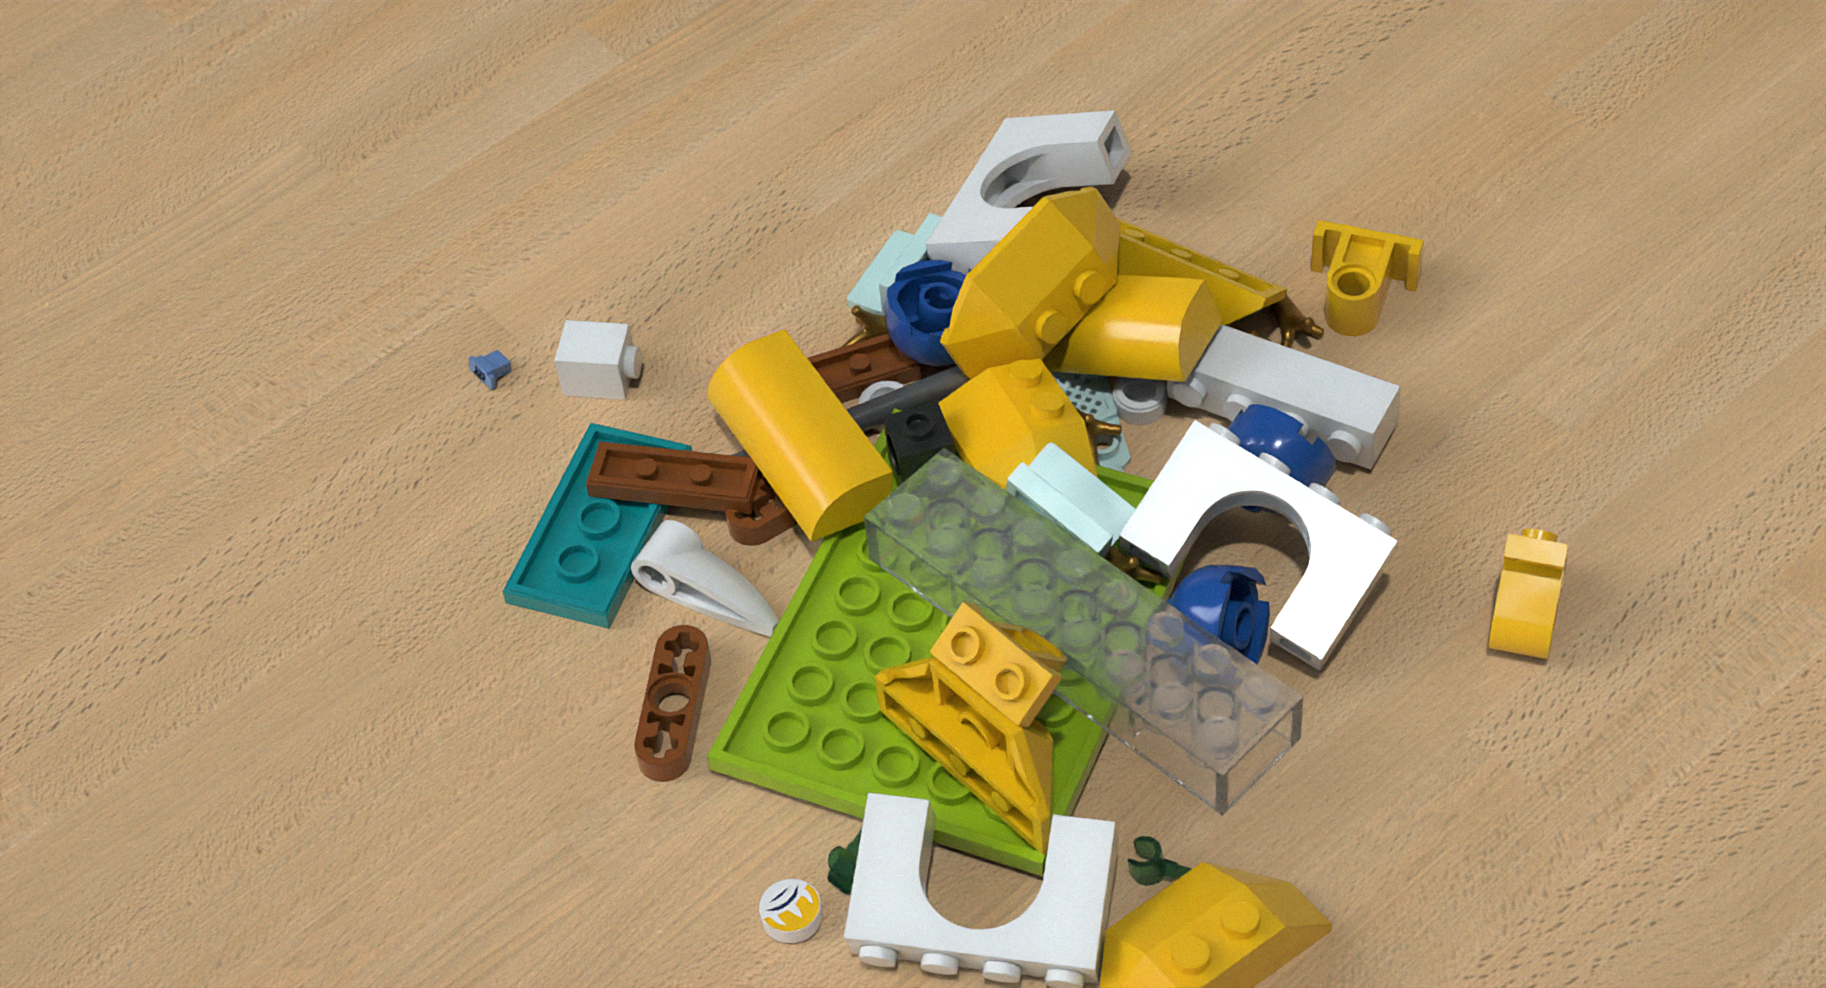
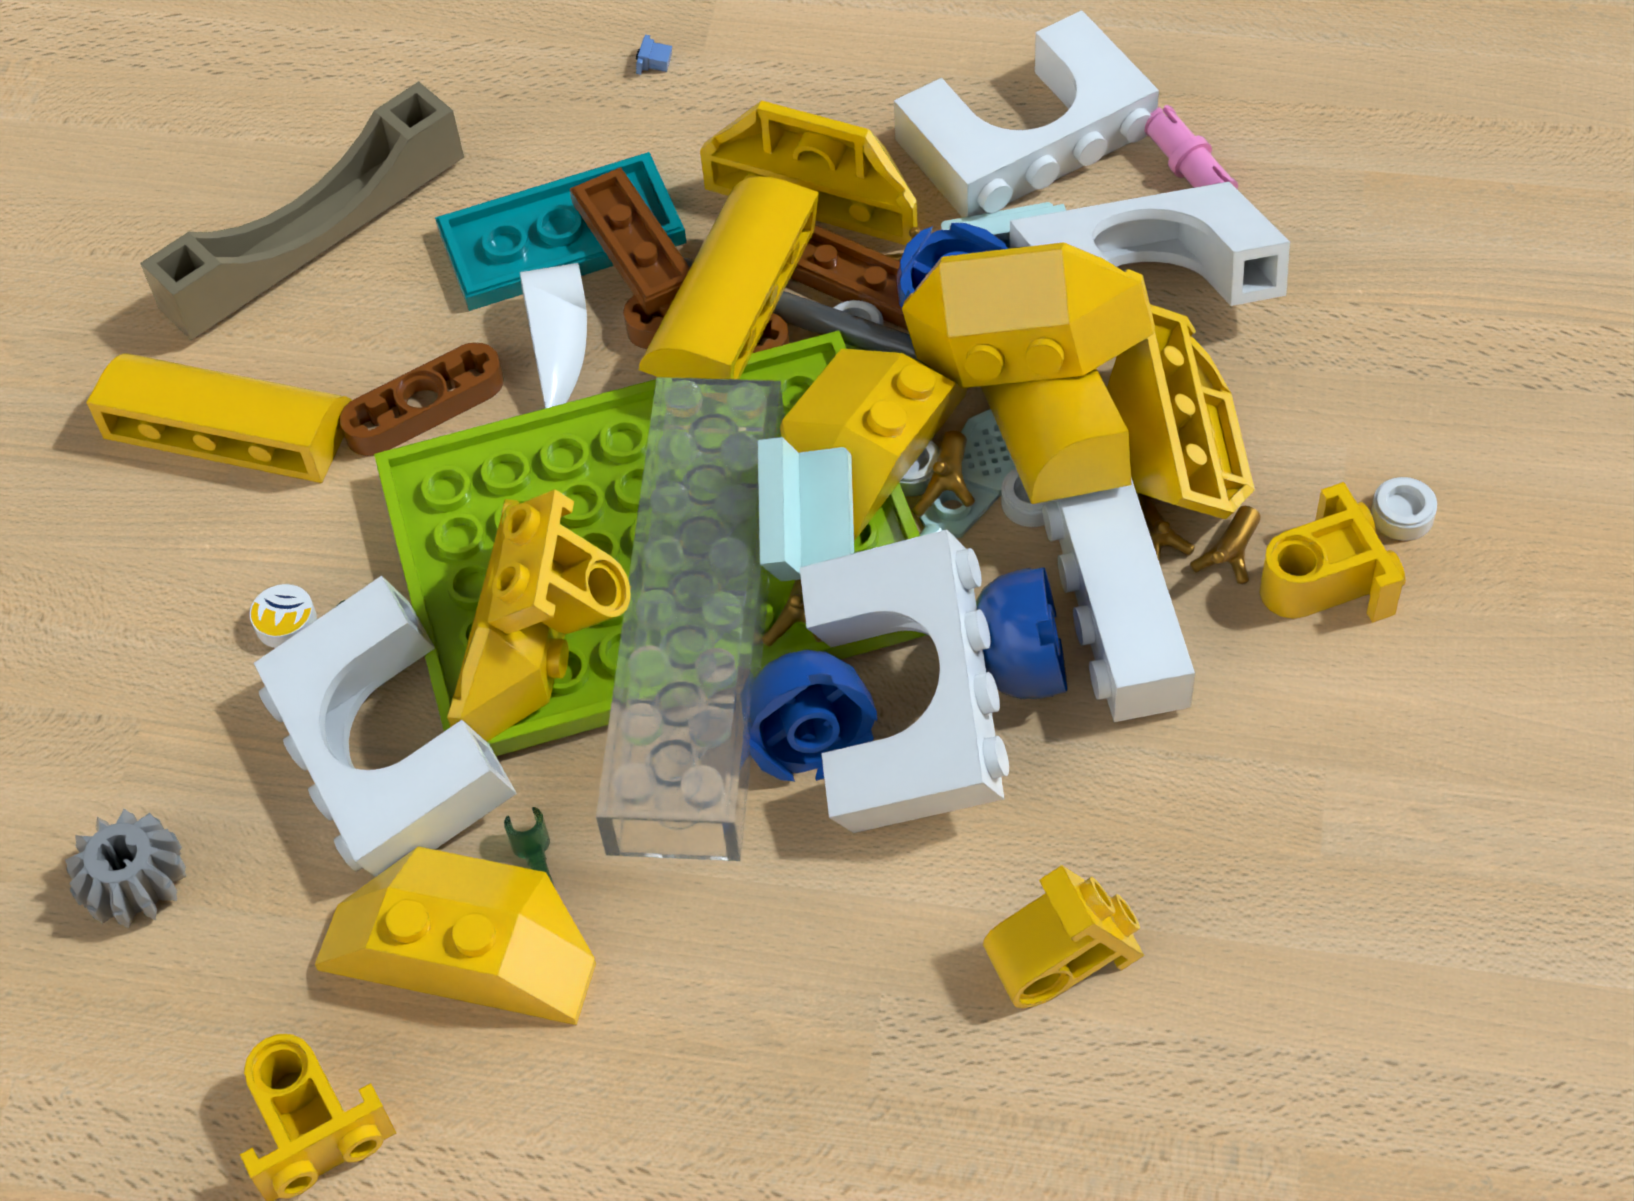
camera: 50 degrees right, 5 degrees up
(412, 730) = (219, 271): none -> dark tan arch
(551, 843) = (218, 416): none -> yellow brick
(597, 360) = (705, 101): white brick -> none
(730, 314) = (839, 160): none -> yellow wedge
(827, 241) = (990, 166): none -> white arch
(915, 438) = (786, 356): pearl dark grey brick -> none
(943, 130) = (1187, 153): none -> bright pink pin
(1349, 209) = (1404, 508): none -> white tile

